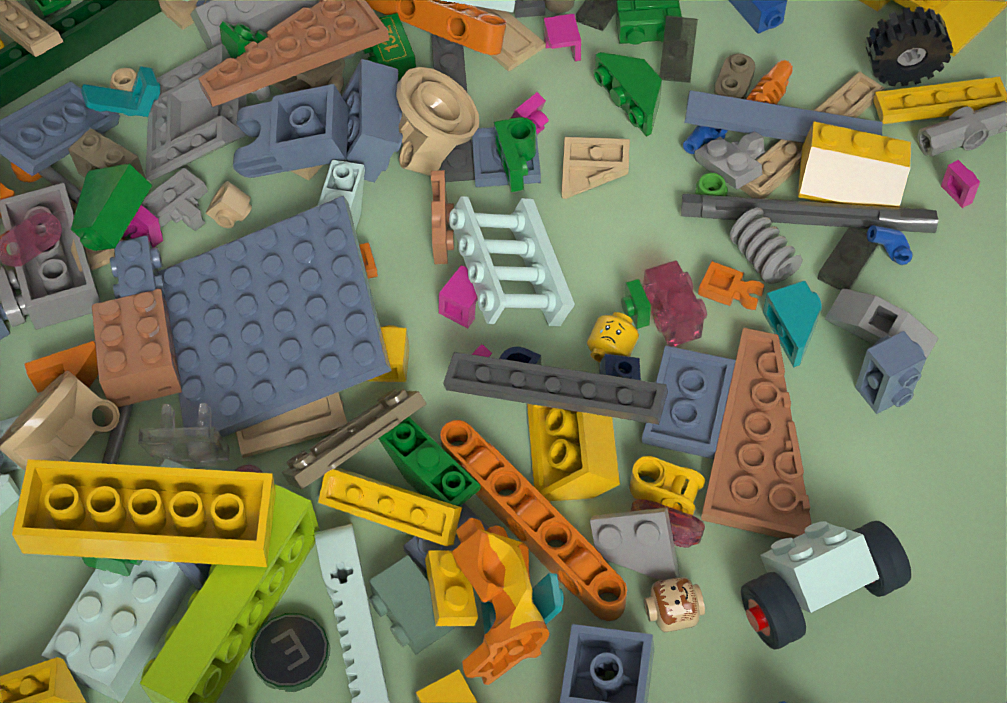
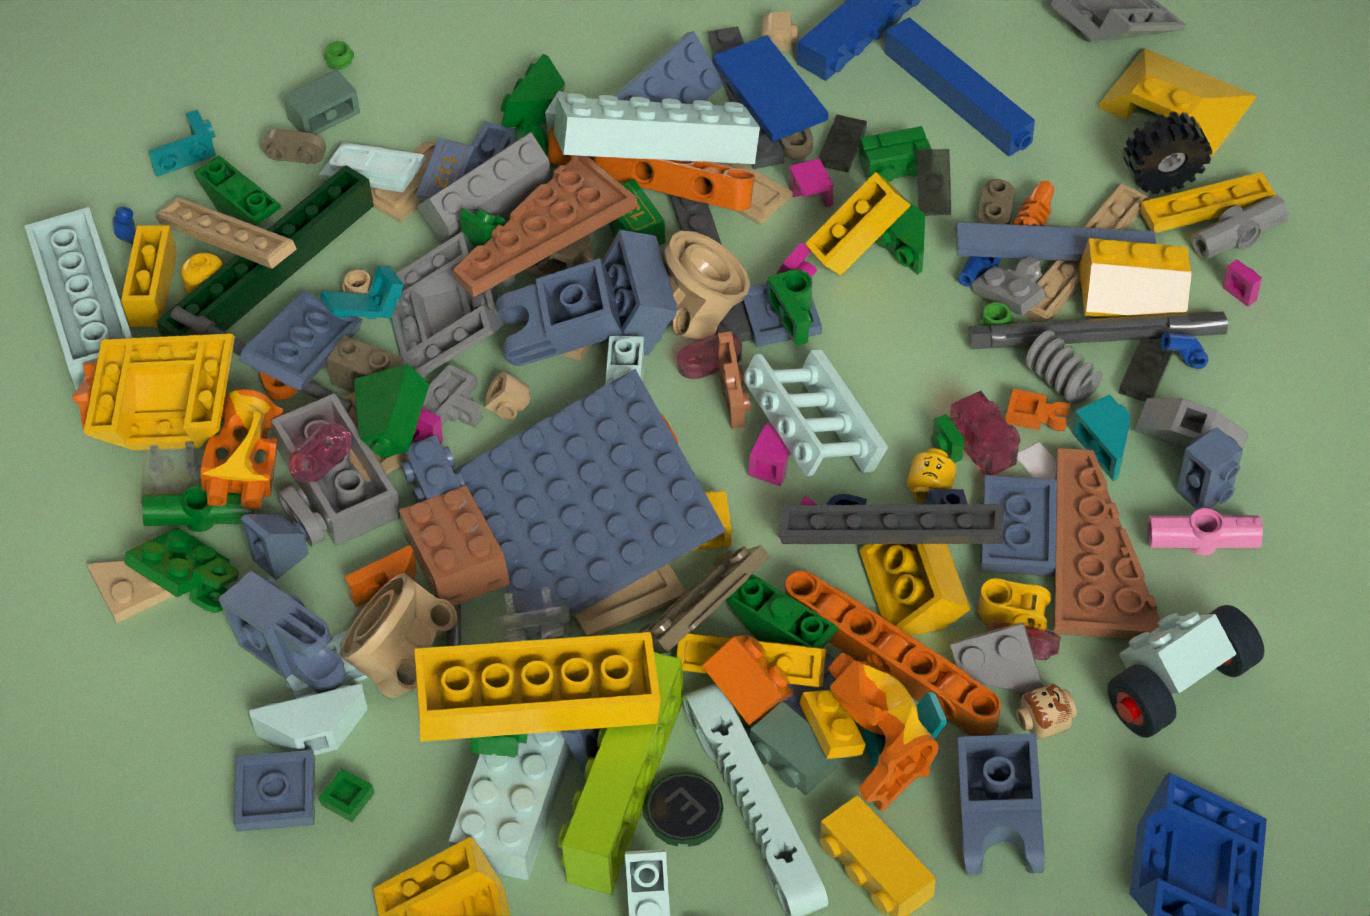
camera: 10 degrees left, 5 degrees down
(378, 526) = (748, 678): none -> orange brick
(417, 194) = (702, 357): none -> clear pink plate
(592, 163) = (871, 307): tan wing -> none
(593, 80) = (858, 224): none -> yellow brick
(723, 338) = (1038, 462): none -> white sticker
(895, 439) = (1205, 531): none -> bright pink piece

